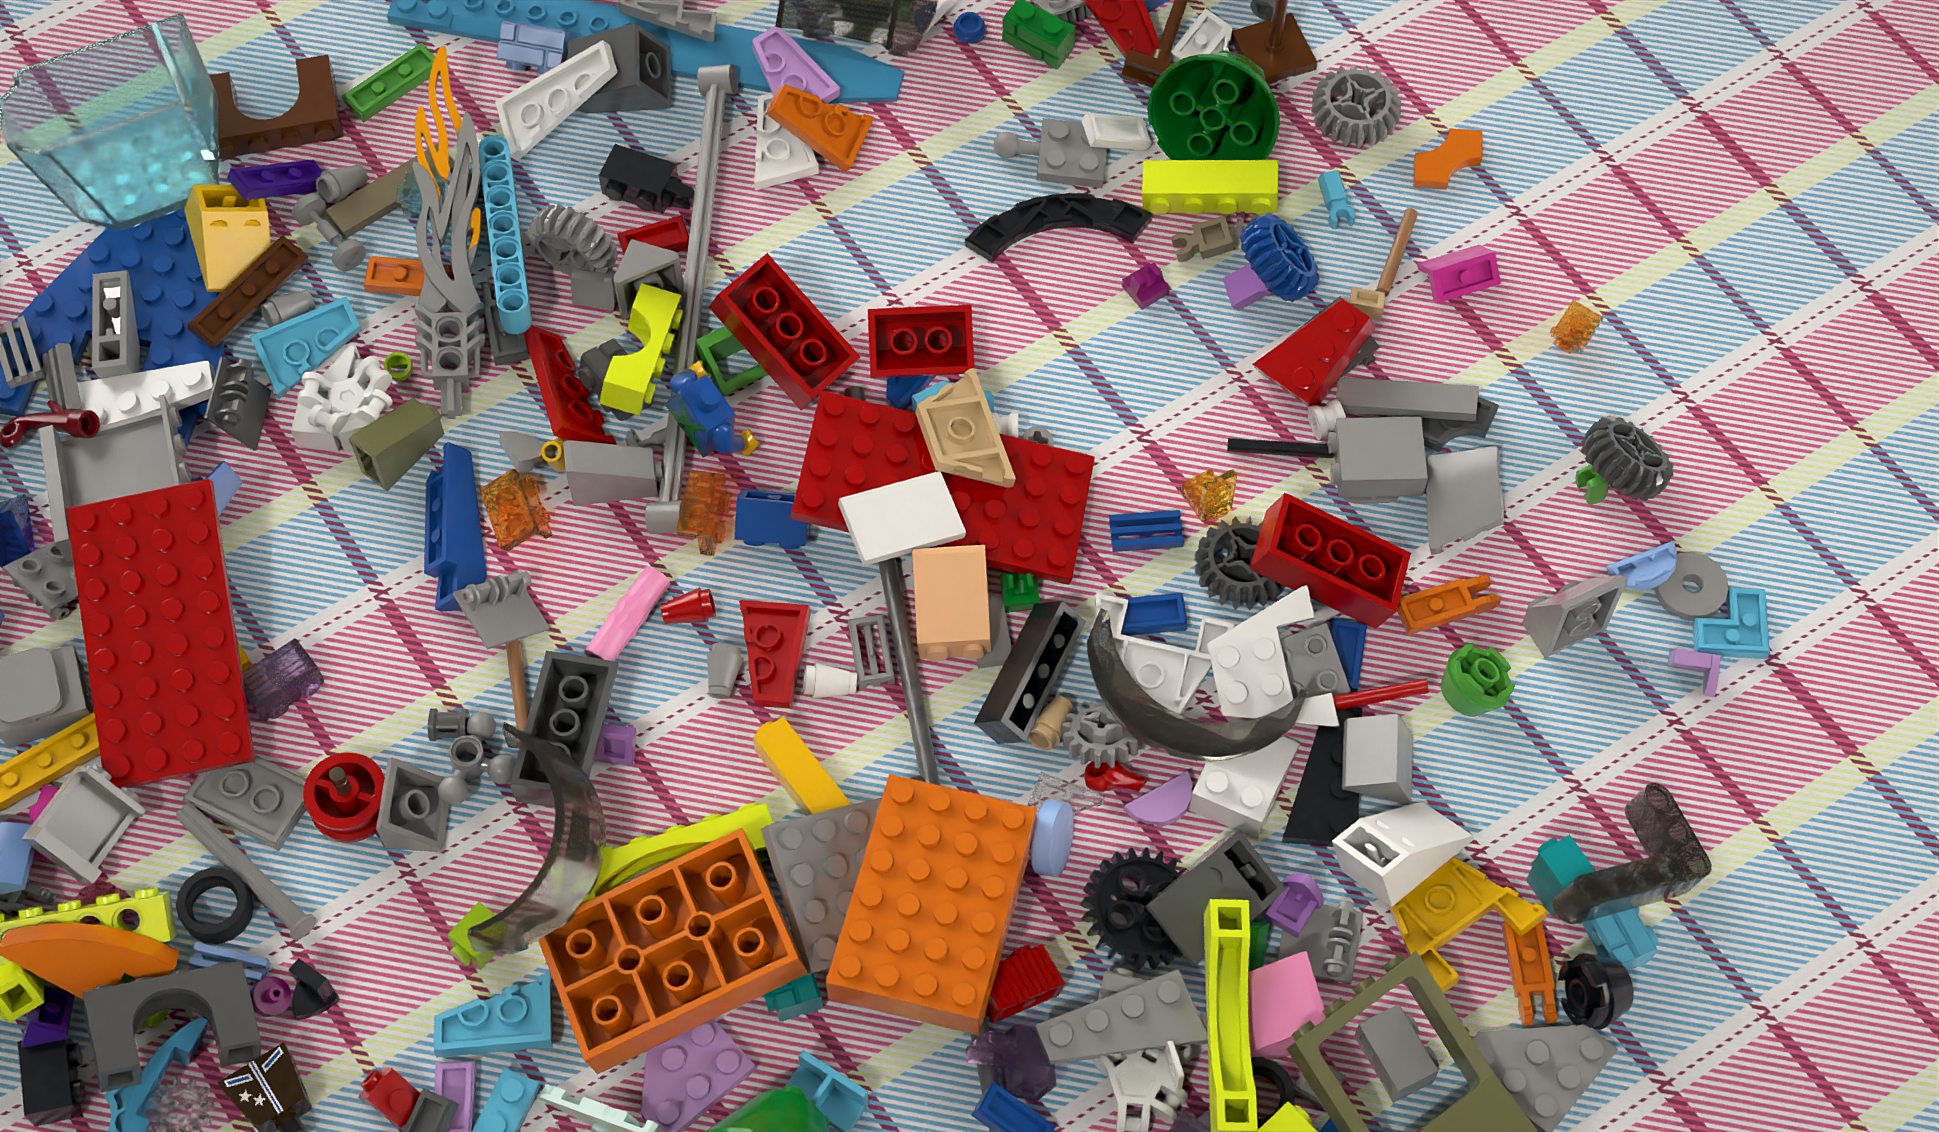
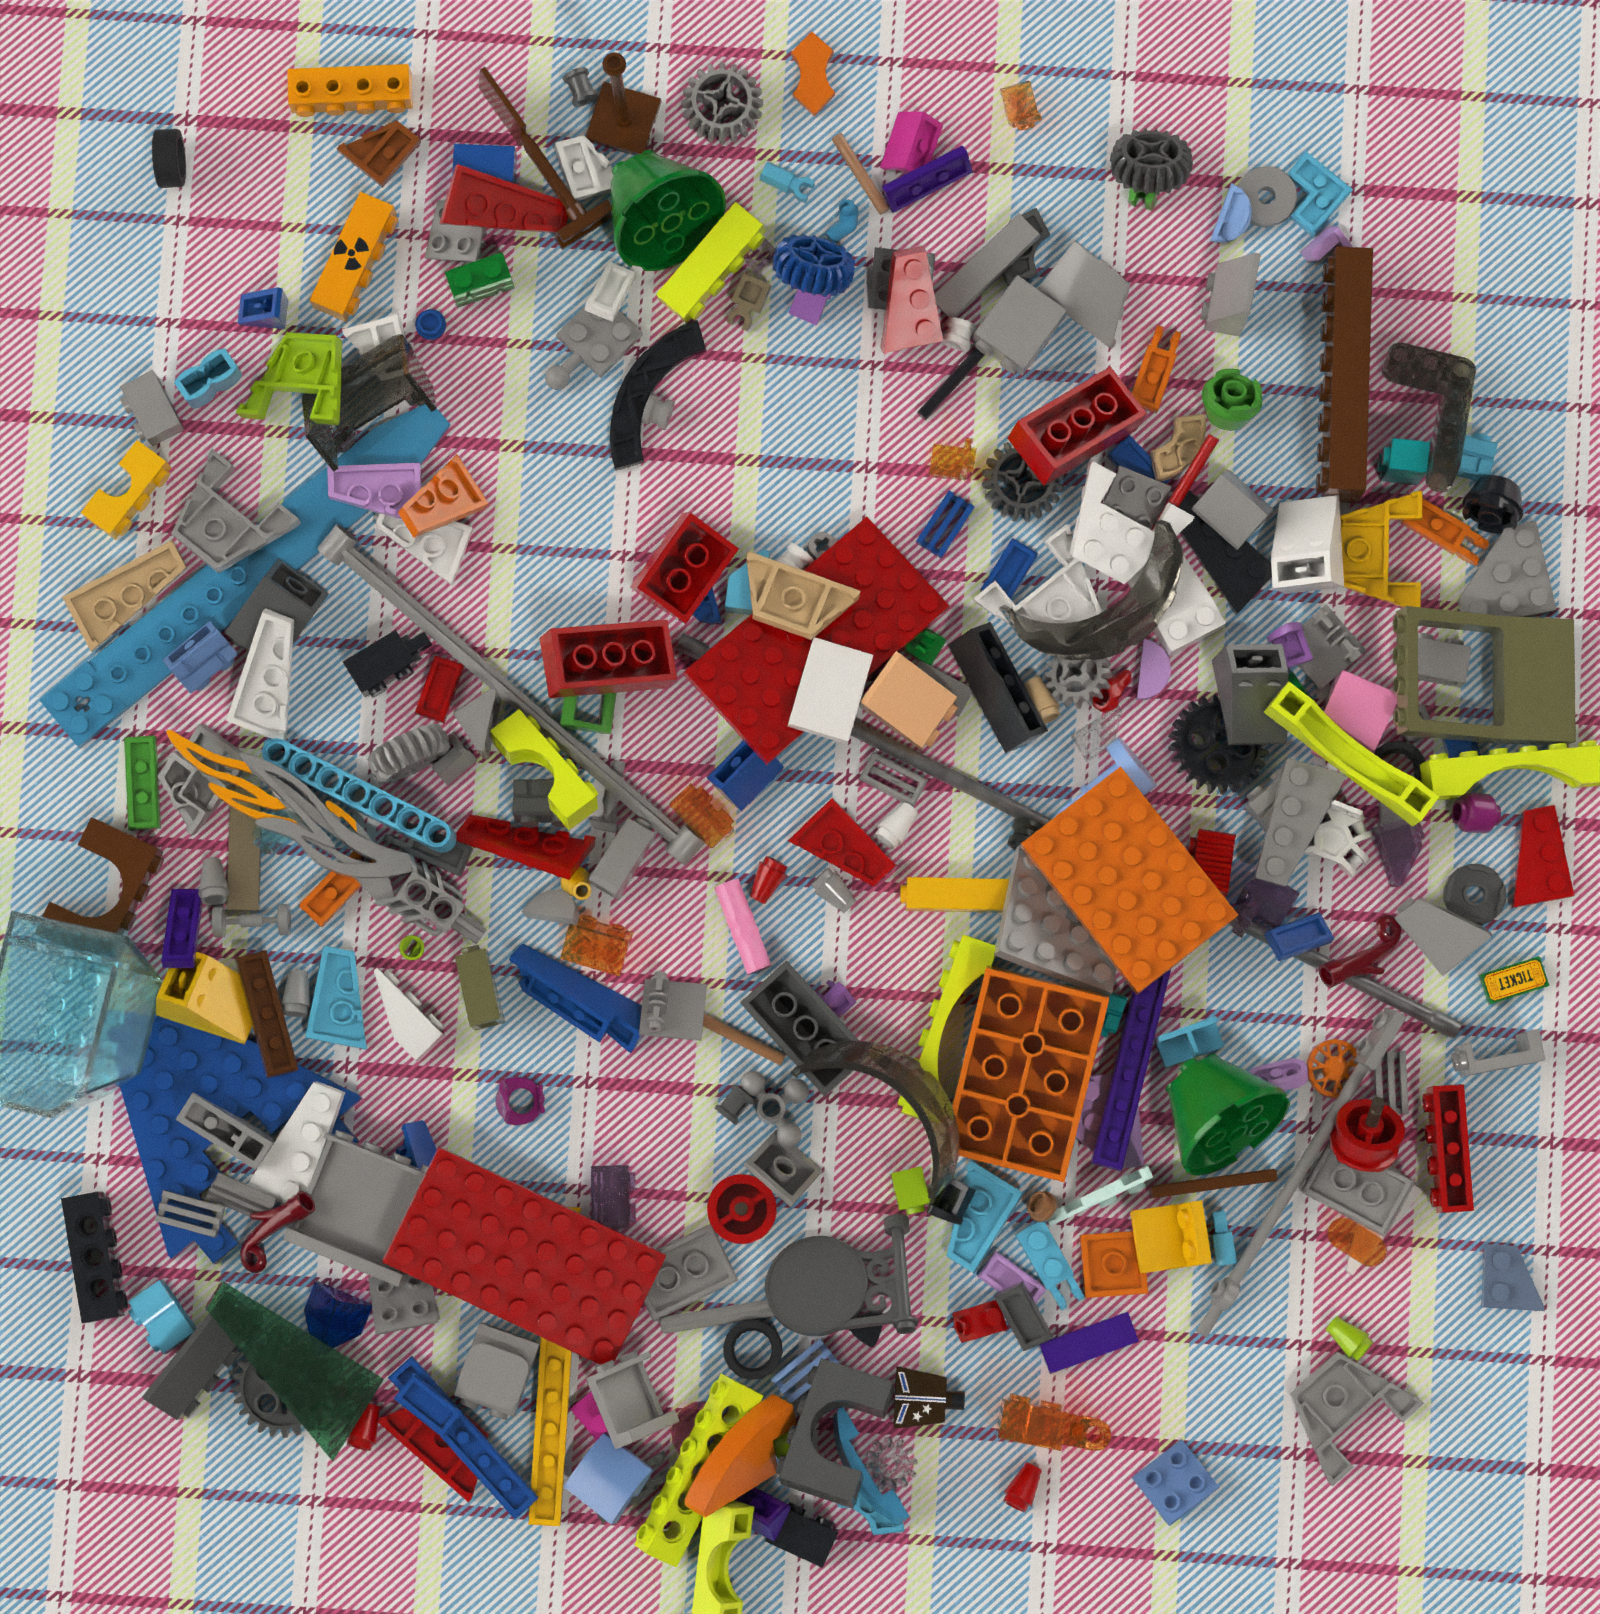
camera: 50 degrees left, 20 degrees up
(238, 402) = (360, 1082): dark grey hinge -> none
(270, 996) = (849, 1353): magenta tile -> none
(317, 526) = (503, 1107): none -> magenta piece
(326, 919) = (824, 1284): none -> dark grey piece
(348, 401) = (424, 1004): white piece -> none
(401, 116) = (189, 786): none -> light grey slope
(492, 982) = (952, 1202): none -> black tile
(551, 1071) = (1041, 1206): none -> medium nougat plate
(706, 414) = (629, 761): blue torso -> none
(752, 1053) = (1128, 1075): none -> dark purple tile
(1043, 236) = (658, 411): none -> light grey wheel
(1146, 285) = (751, 371): magenta tile -> none
(1344, 270) = (847, 221): none -> dark azure arm
(1368, 302) = (888, 231): tan tile -> none
(1377, 671) = (1181, 449): none -> tan tile
(1441, 301) = (927, 179): none -> dark purple tile
(1592, 762) = (1346, 373): none -> reddish brown brick

